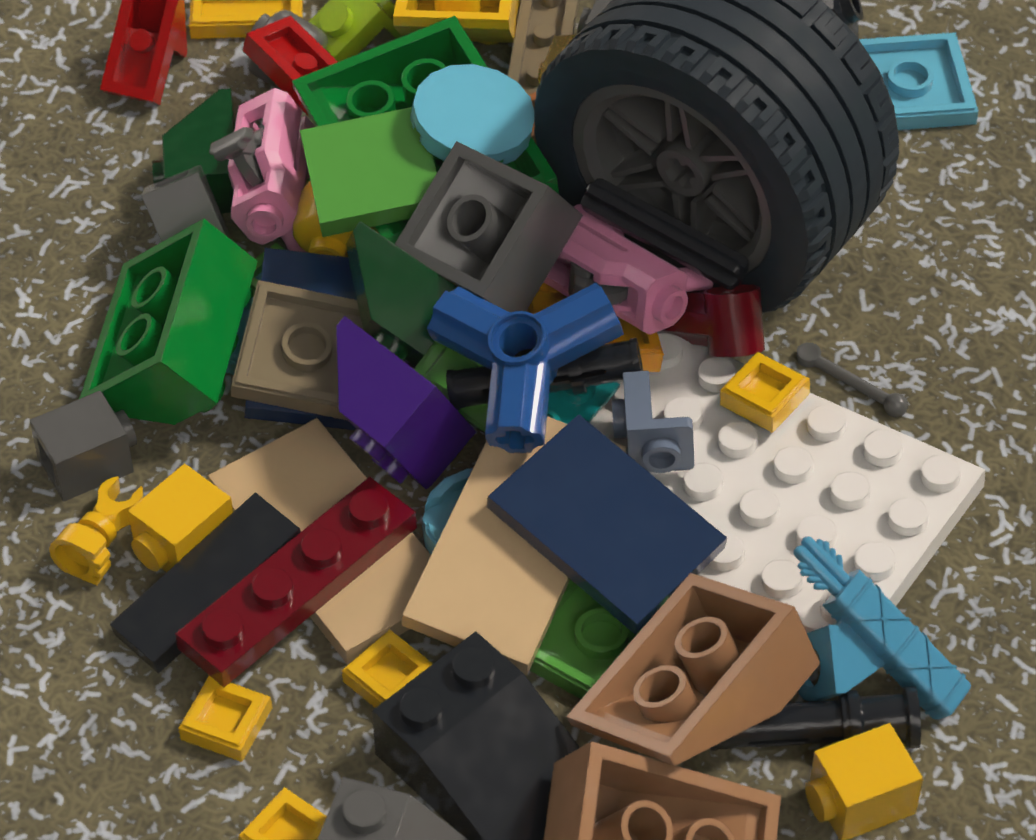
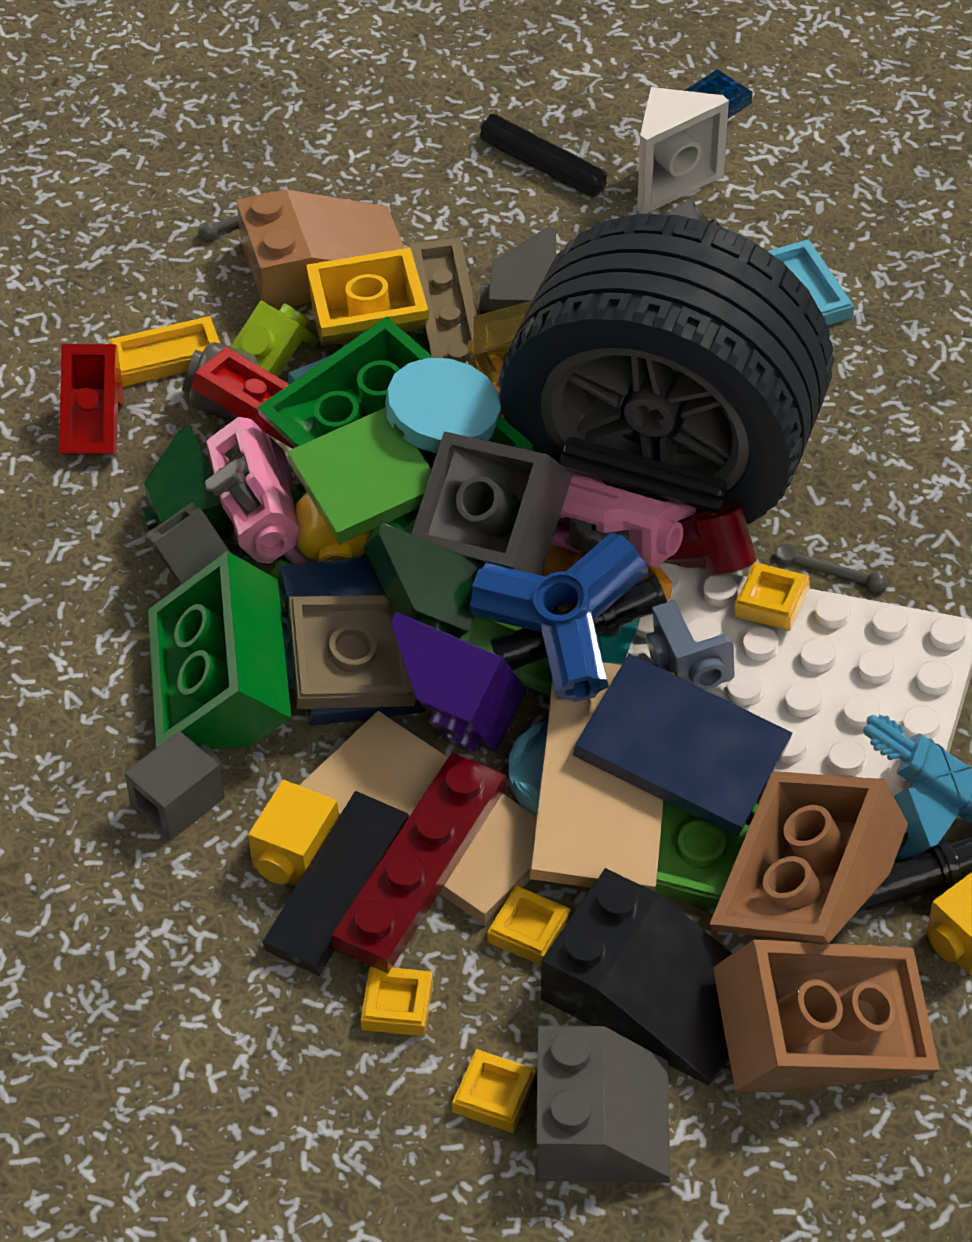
camera: 15 degrees left, 0 degrees up
(83, 545) = (211, 876): yellow piece -> none

